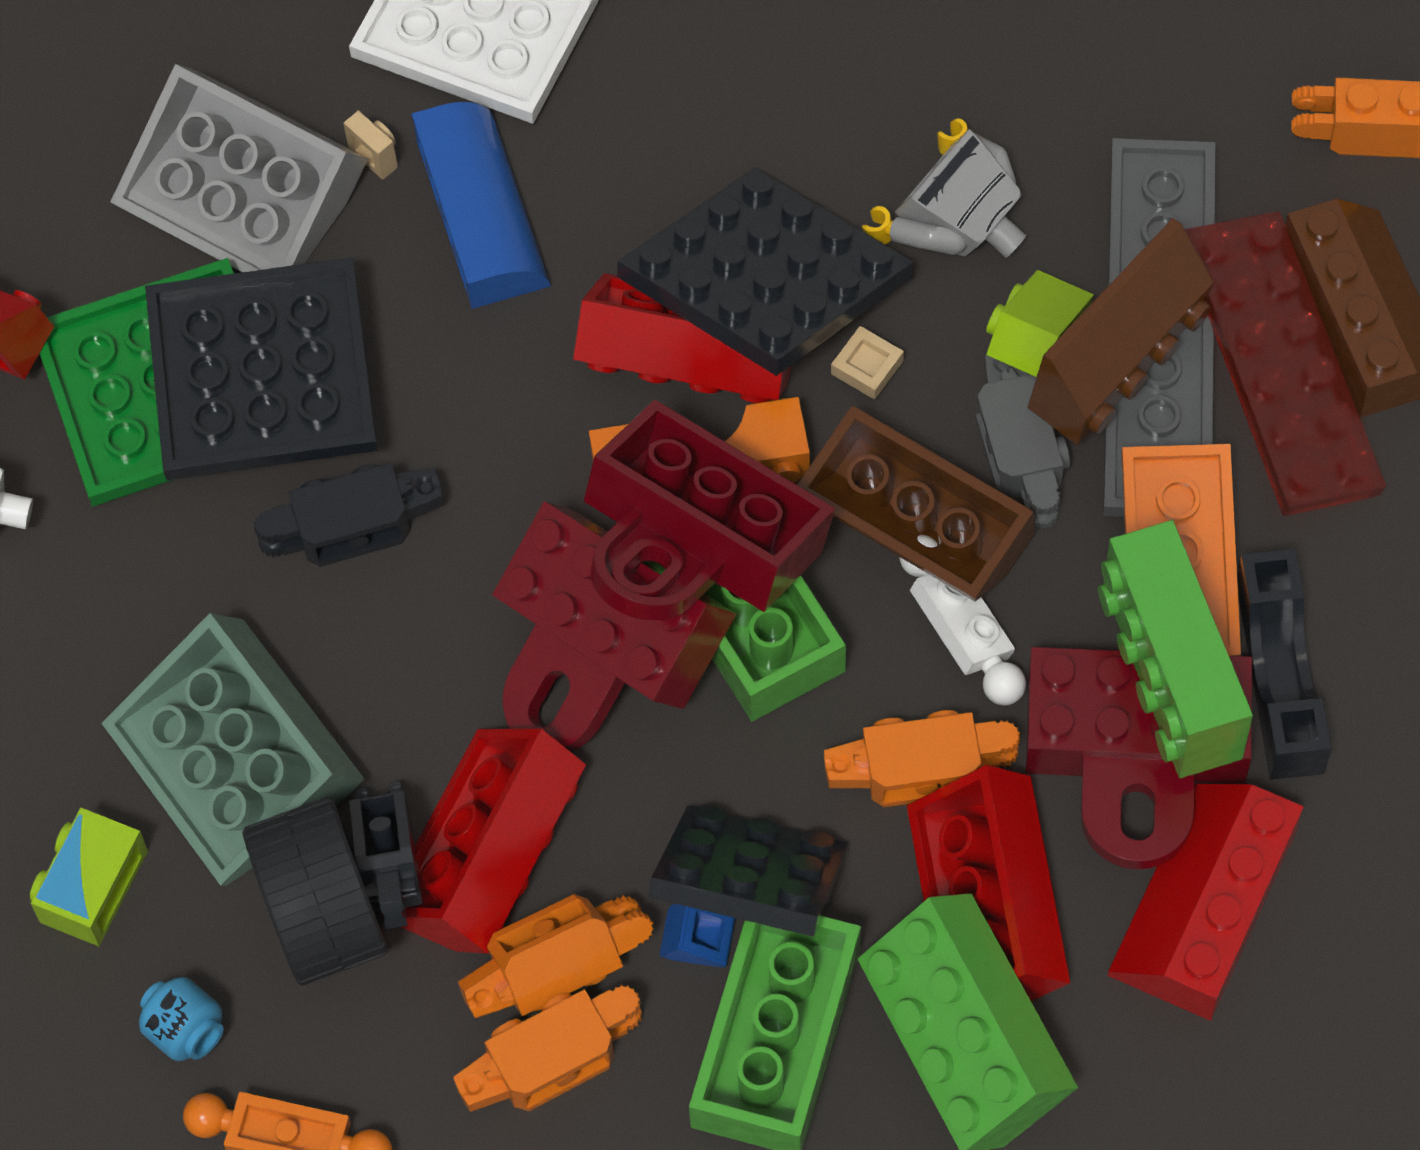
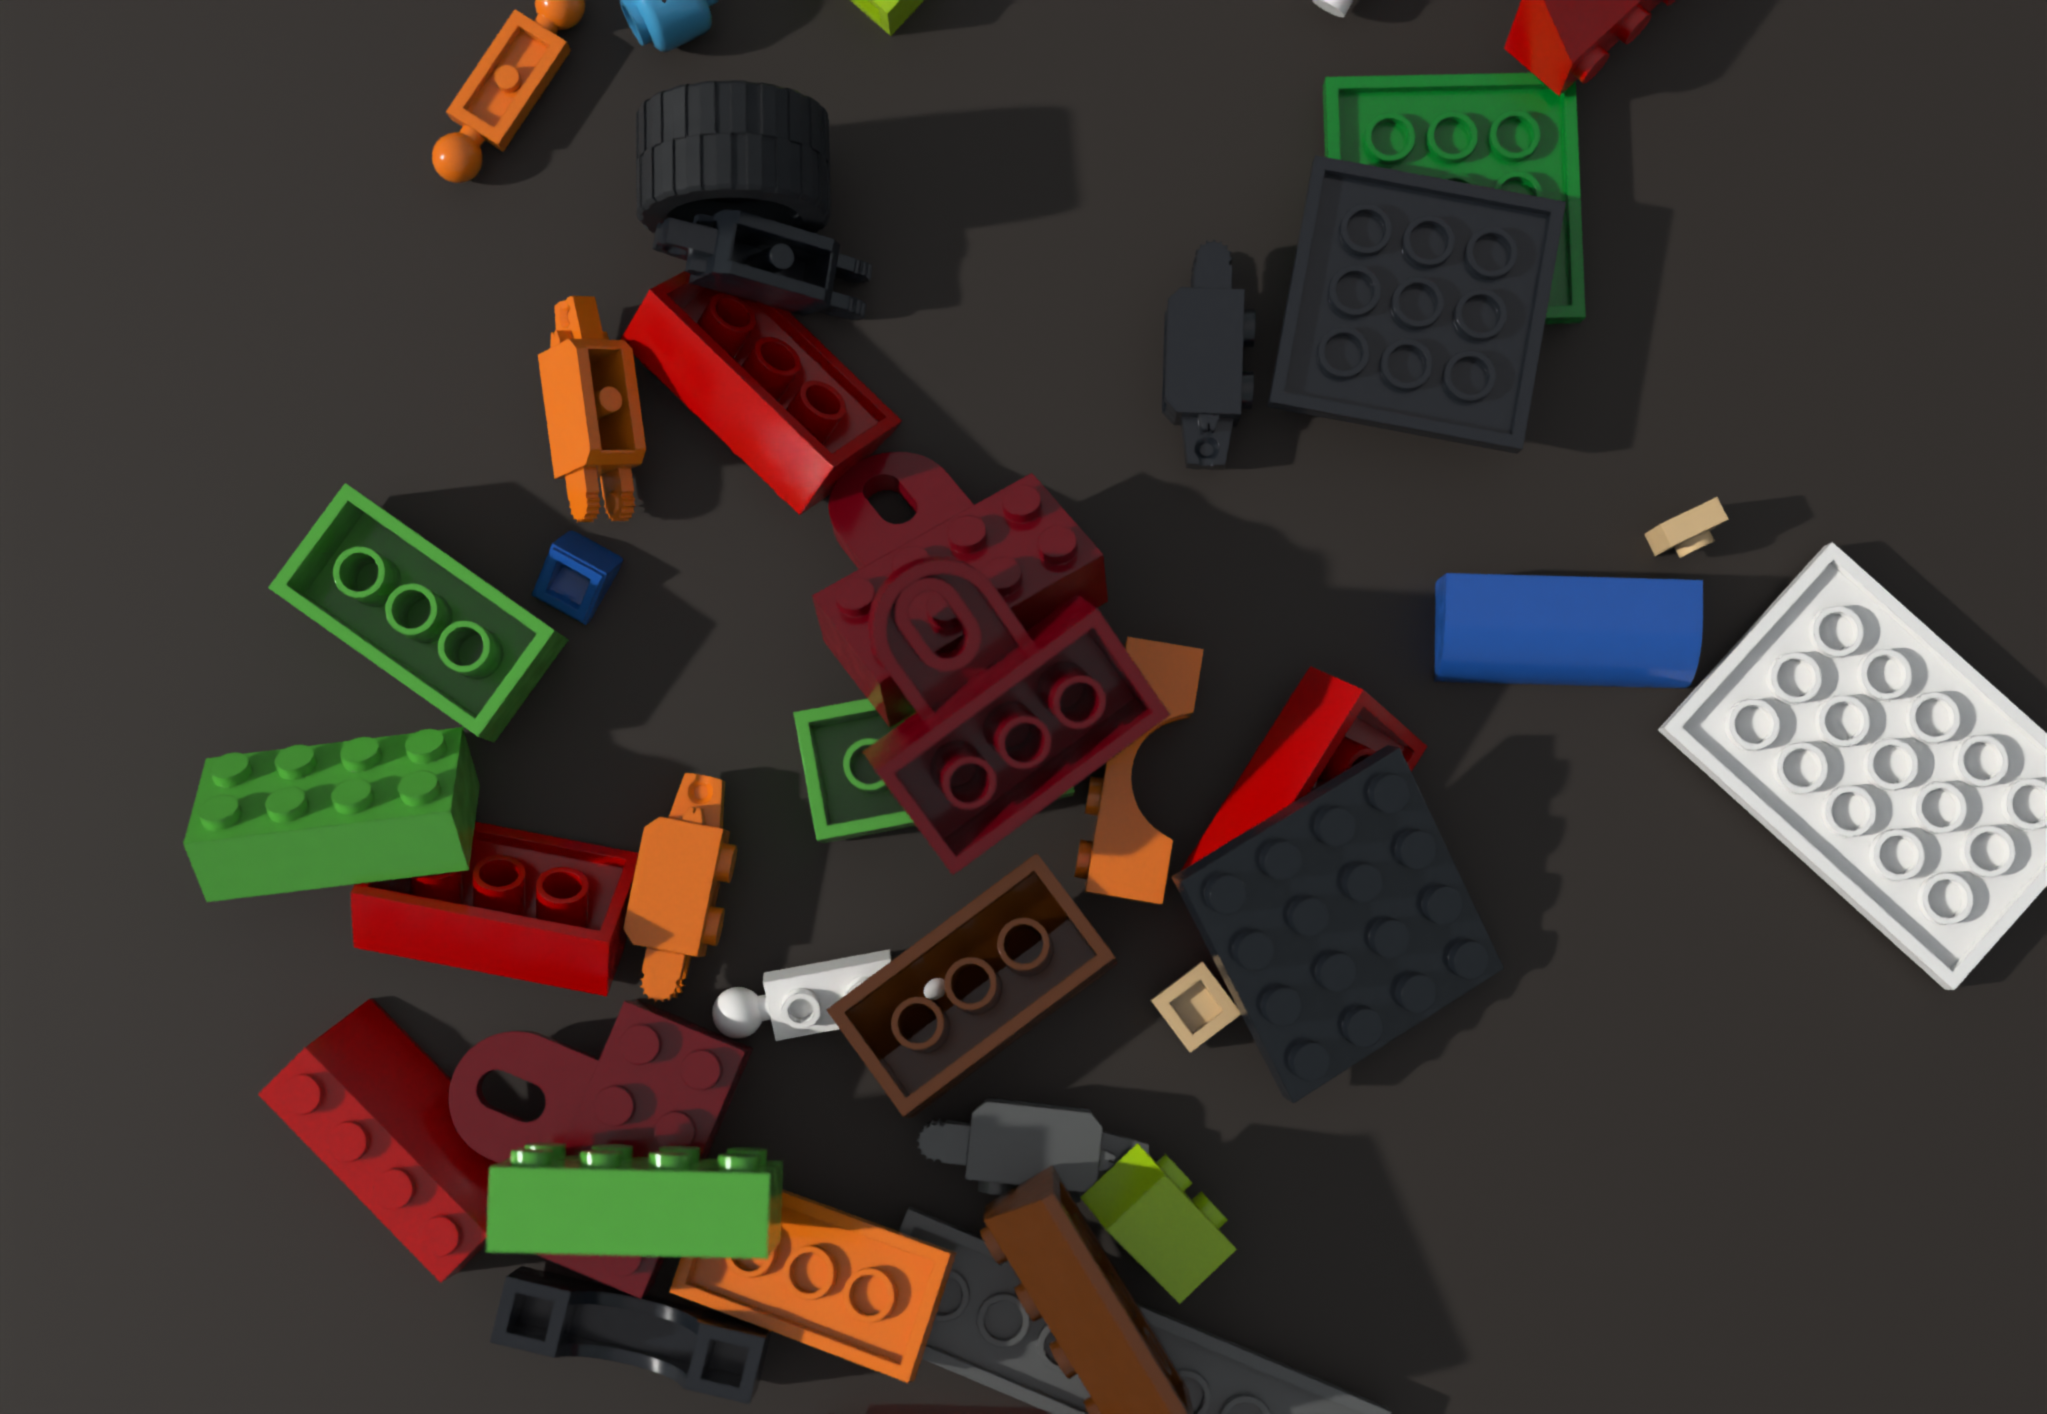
camera: 105 degrees right, 20 degrees up
(227, 742) = (967, 149): sand green slope -> none
(235, 175) = (1697, 362): light grey slope -> none
(550, 1050) = (492, 373): orange hinge -> none
(749, 869) = (594, 642): black plate -> none
(957, 200) = (1369, 1195): light grey torso -> none

